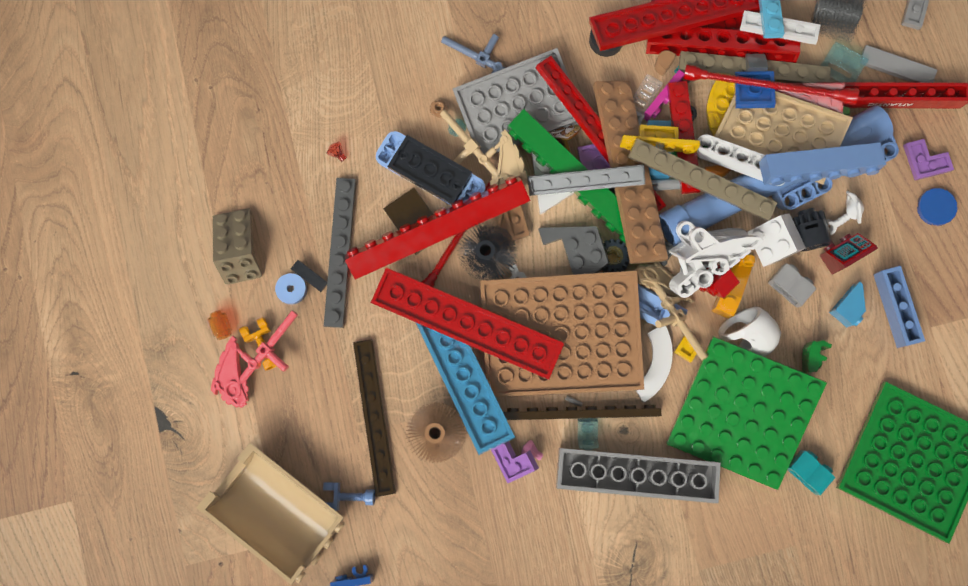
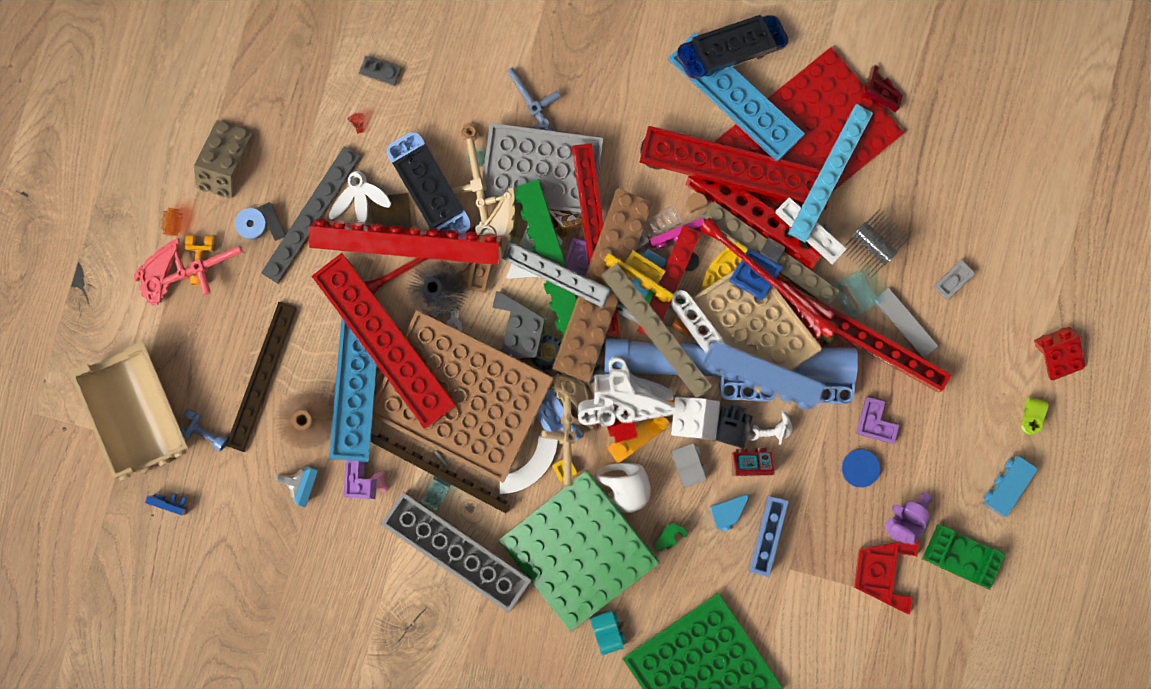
camera: 25 degrees right, 5 degrees up
(332, 100) = (380, 71): none -> dark grey plate
(377, 217) = (359, 191): none -> white plant
(462, 494) = (299, 484): none -> piece

